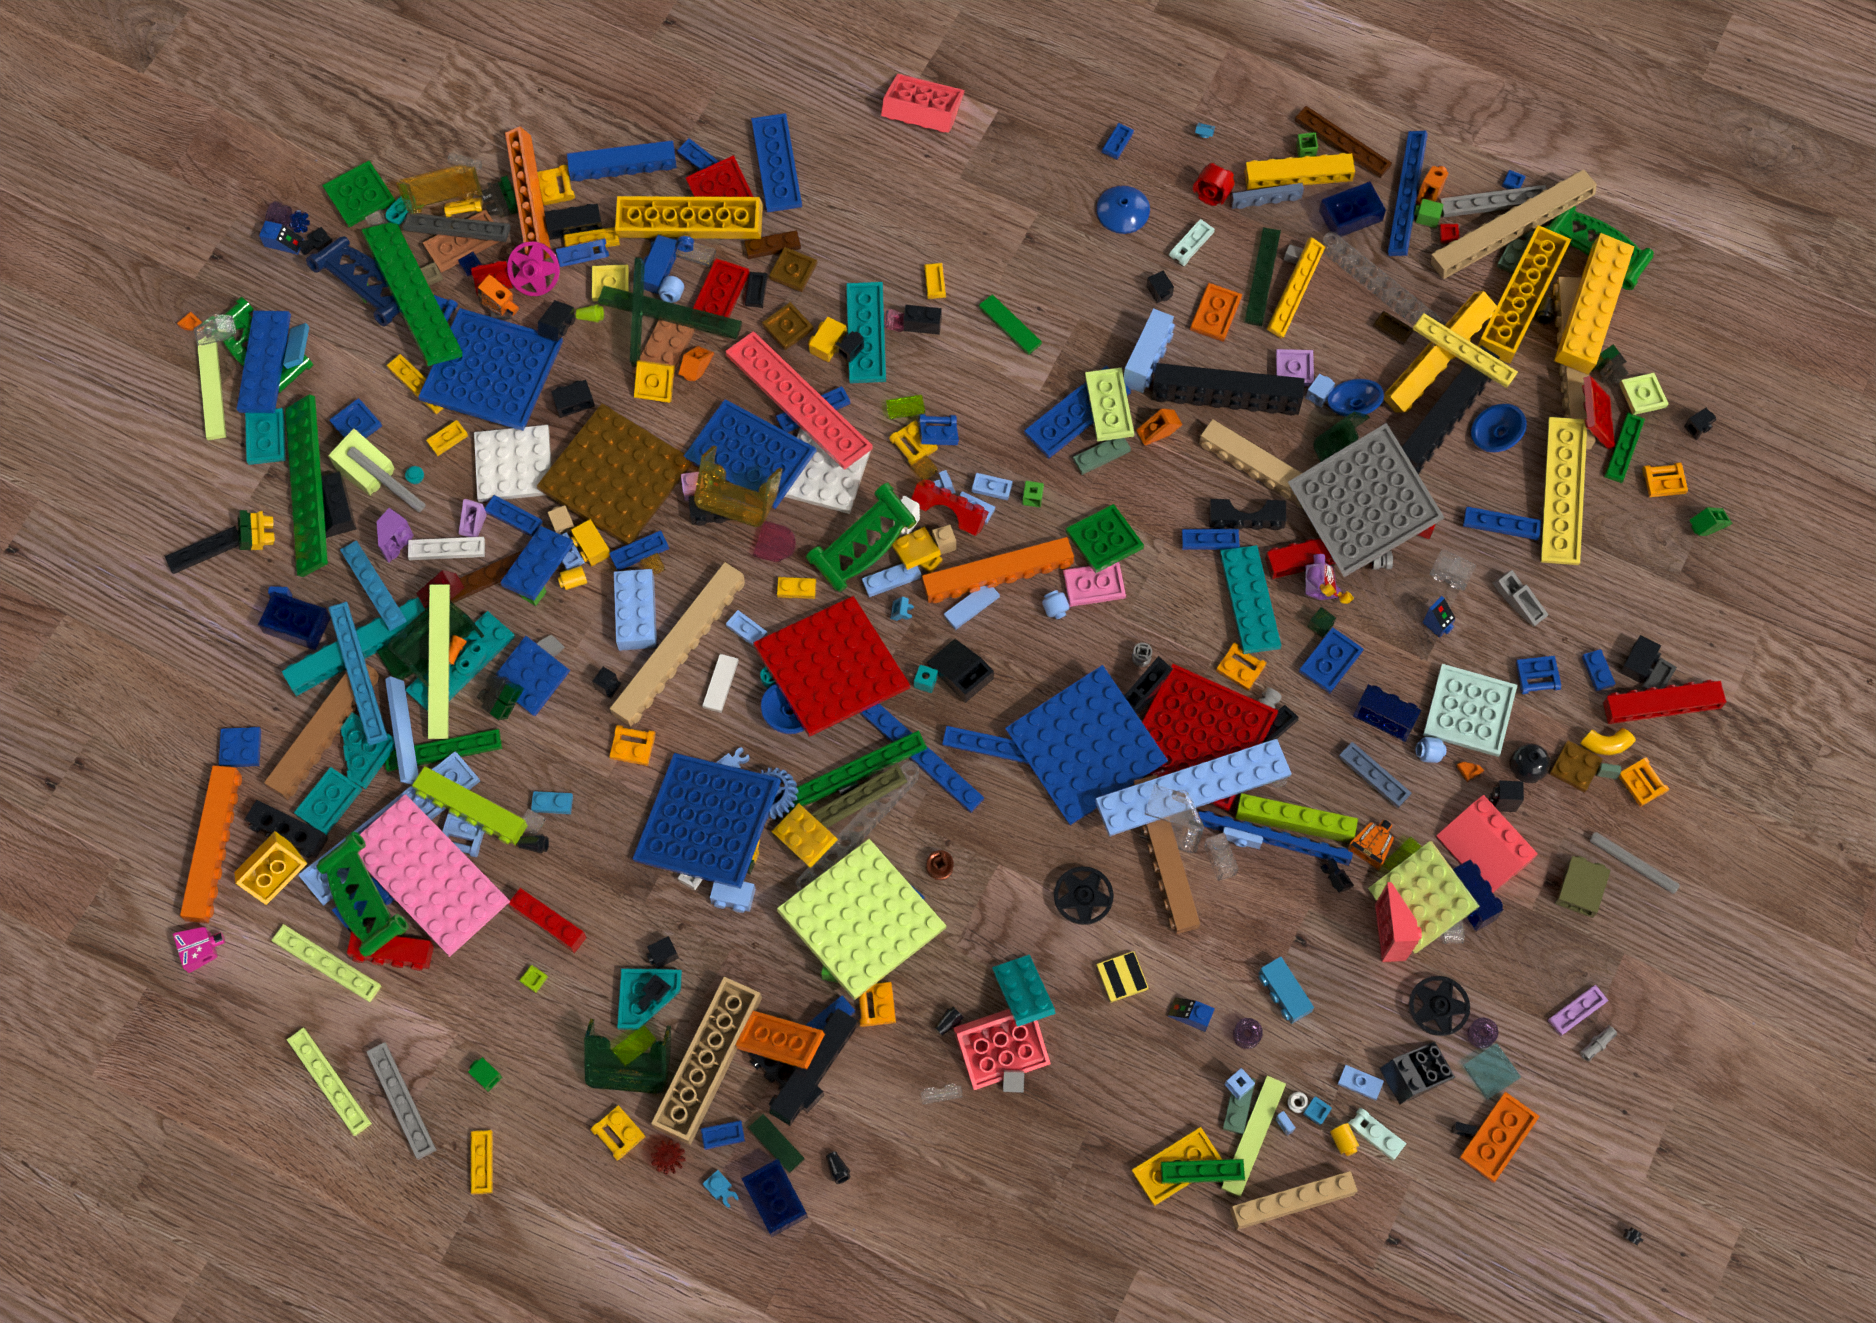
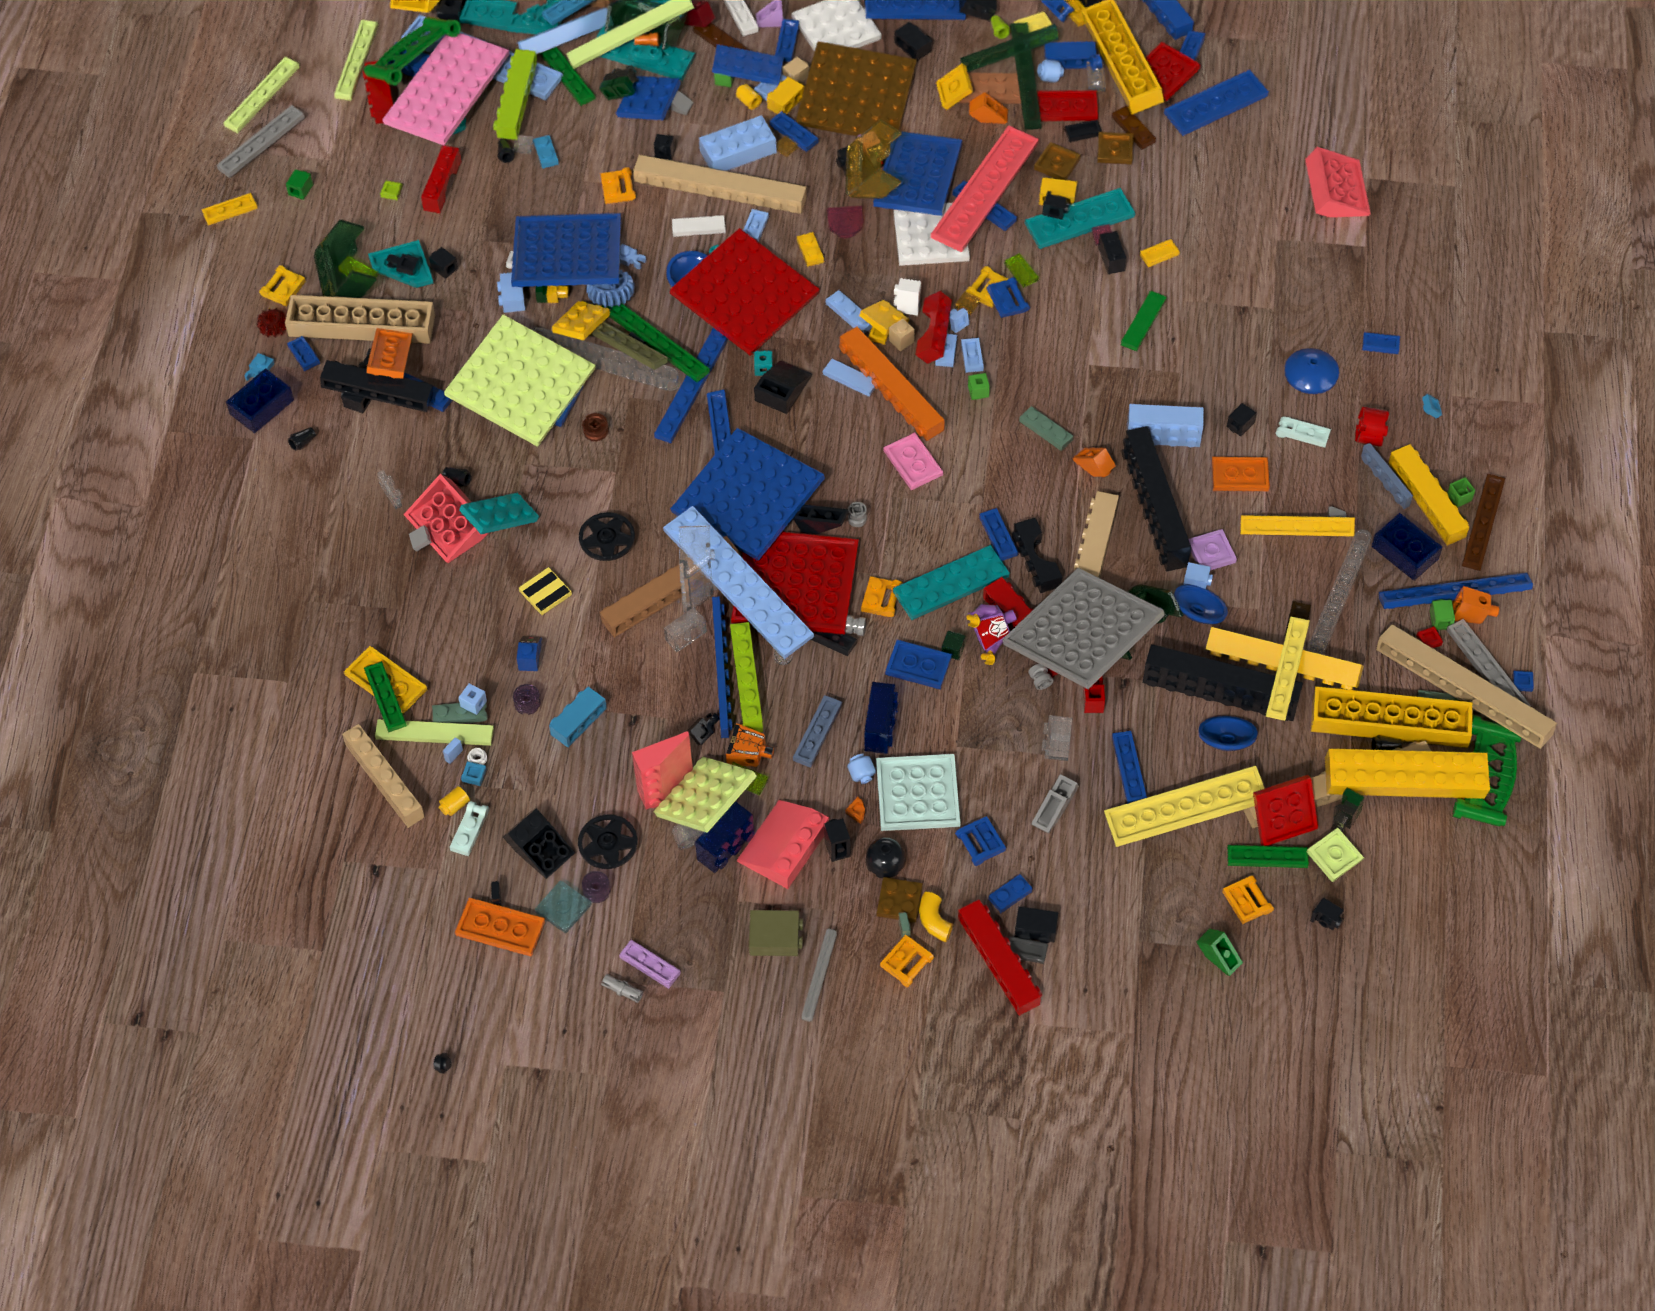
camera: 70 degrees right, 10 degrees down
(459, 828) = (495, 94): light blue plate -> none
(776, 1143) = (307, 394): clear green tile -> none
(829, 561) = (845, 256): green piece -> none
(883, 1005) = (456, 427): light orange plate -> none
(900, 608) = (822, 324): dark azure tile -> none
(1055, 604) = (876, 435): light blue head -> none
(1063, 422) = (1078, 395): blue plate -> none
(1104, 538) = (959, 451): green plate -> none
(1109, 404) = (1093, 412): yellowish green plate -> none
(1243, 838) = (709, 641): light blue plate -> none
(1262, 276) = (1298, 499): clear green tile -> none
(1360, 1082) = (513, 802): light blue plate -> none
(1440, 618) = (999, 736): slope -> none

